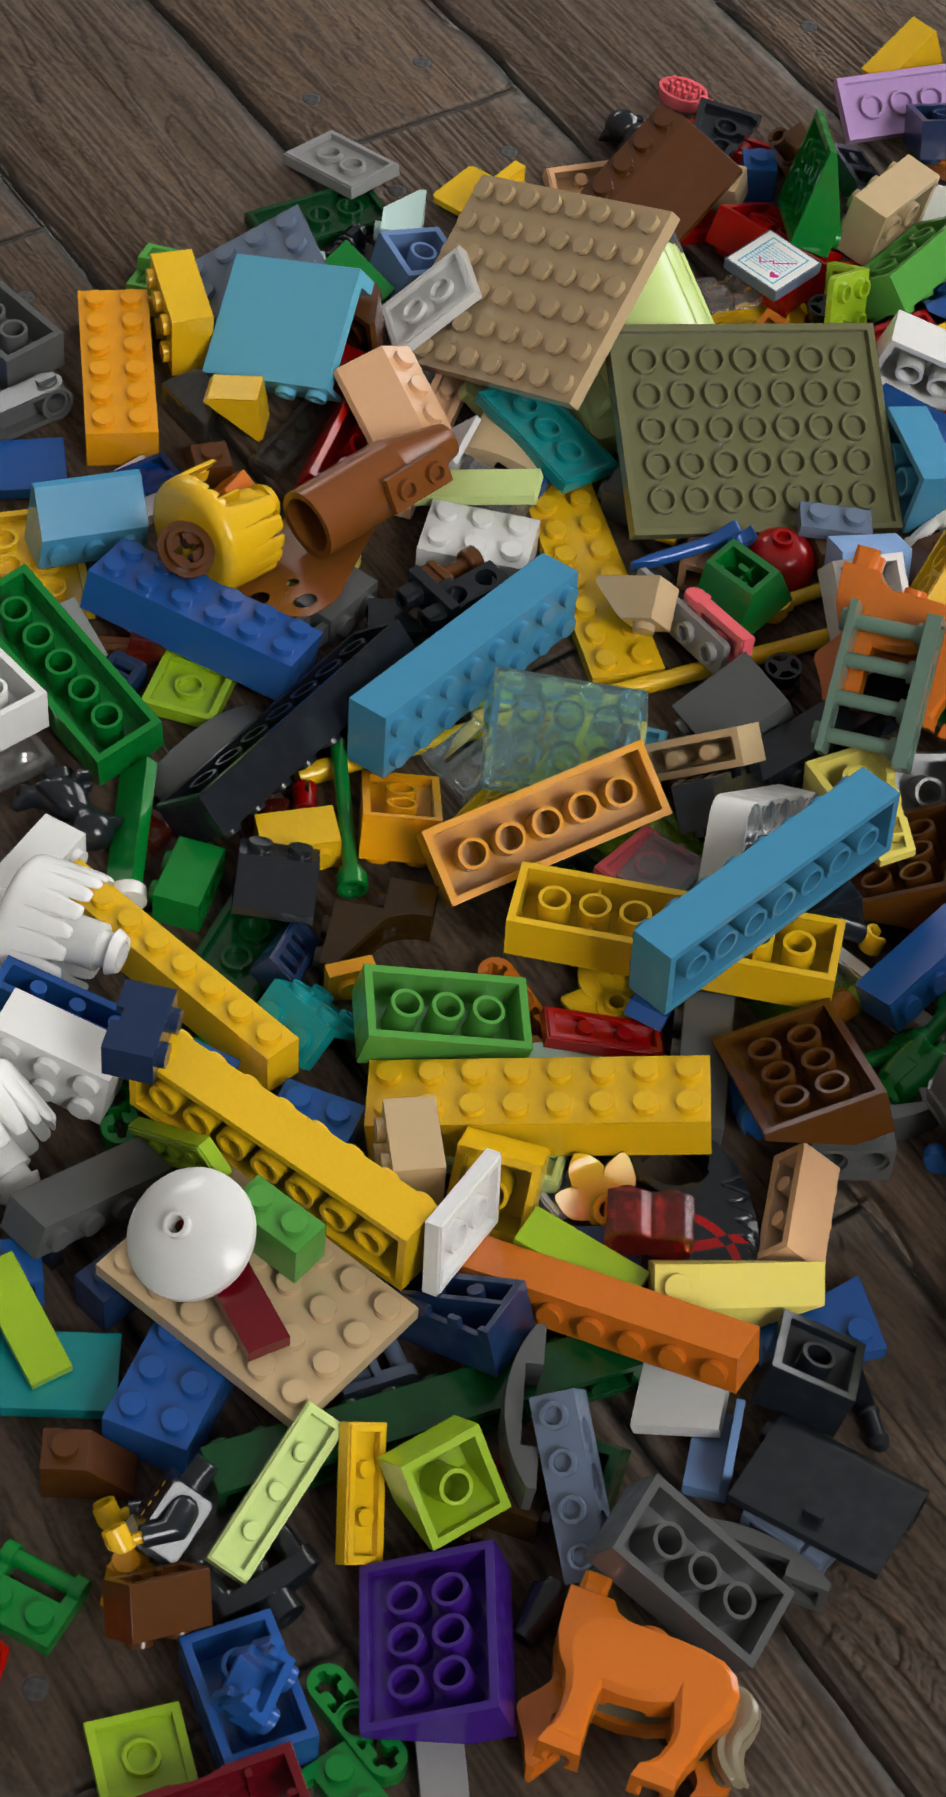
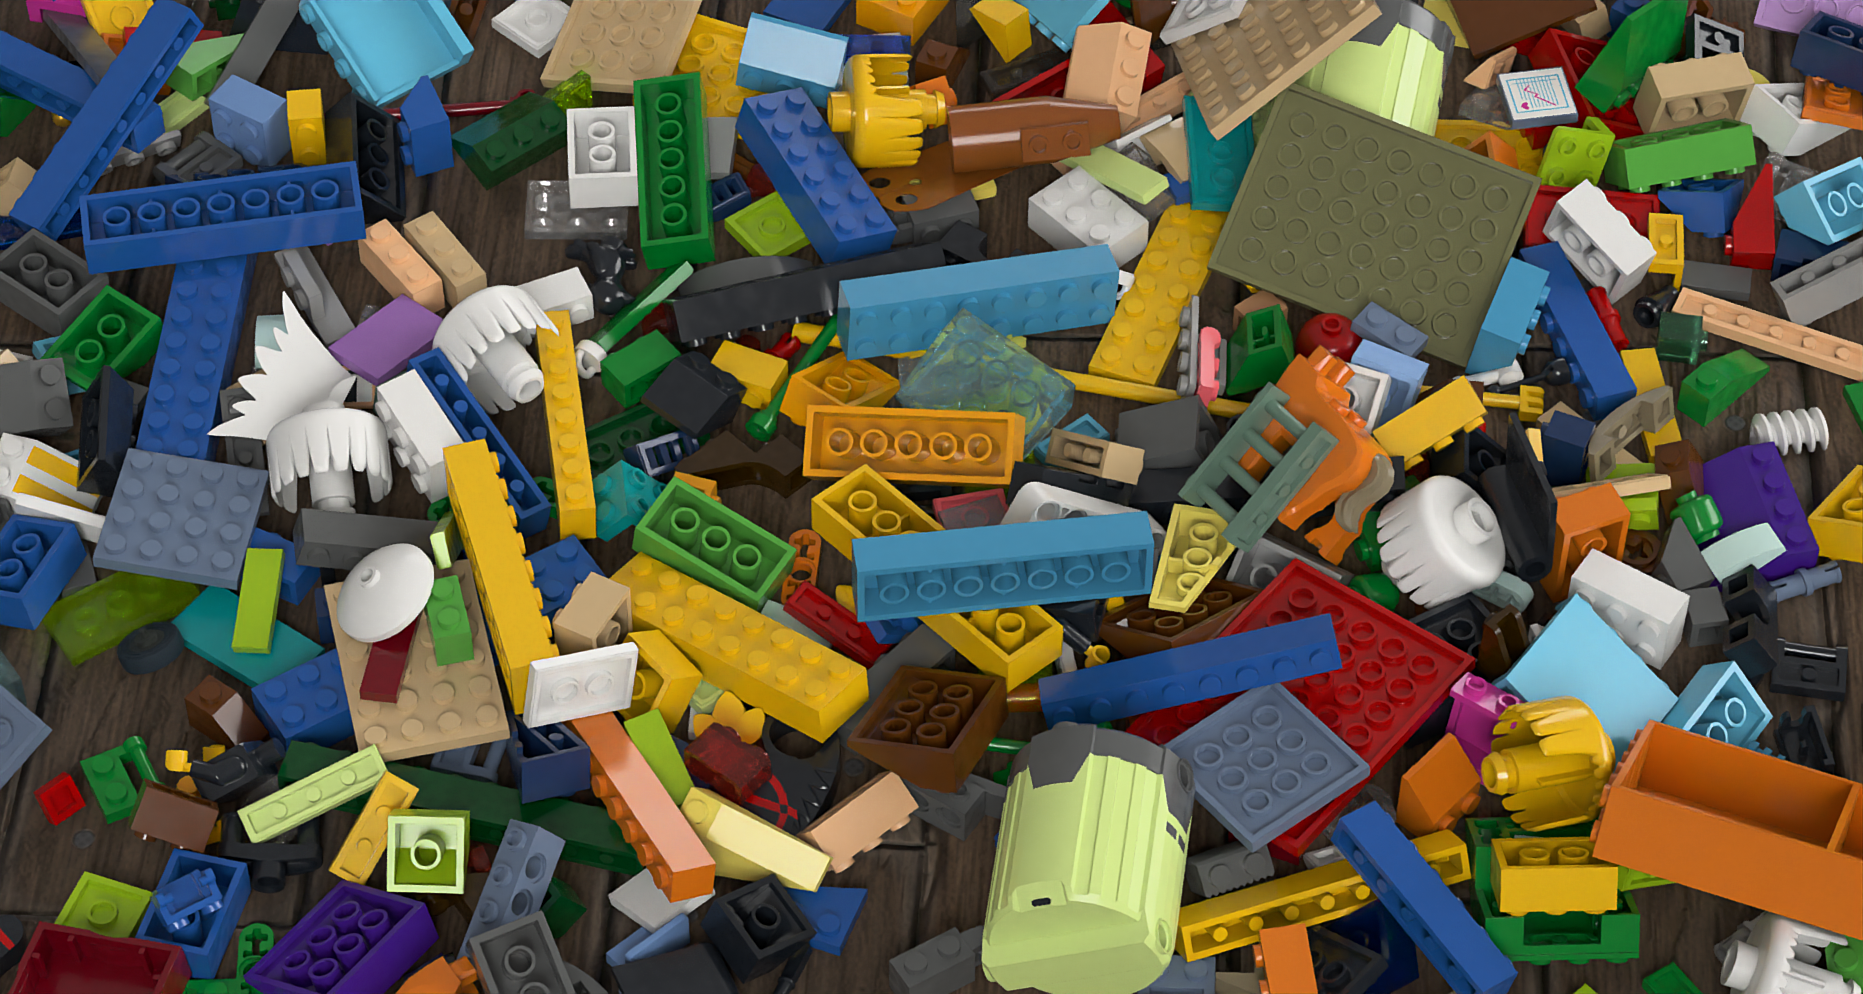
camera: 40 degrees right, 0 degrees up
(139, 1040) = (453, 437): dark blue brick -> none
(189, 536) = (839, 107): reddish brown gear -> none
(449, 589) = (1015, 236): black hips -> none
(518, 1460) = (547, 805): dark grey slope -> none
(641, 601) = (1162, 321): tan slope -> none
(698, 258) = (1486, 73): none -> light nougat slope
(709, 543) = (1290, 307): blue piece -> none

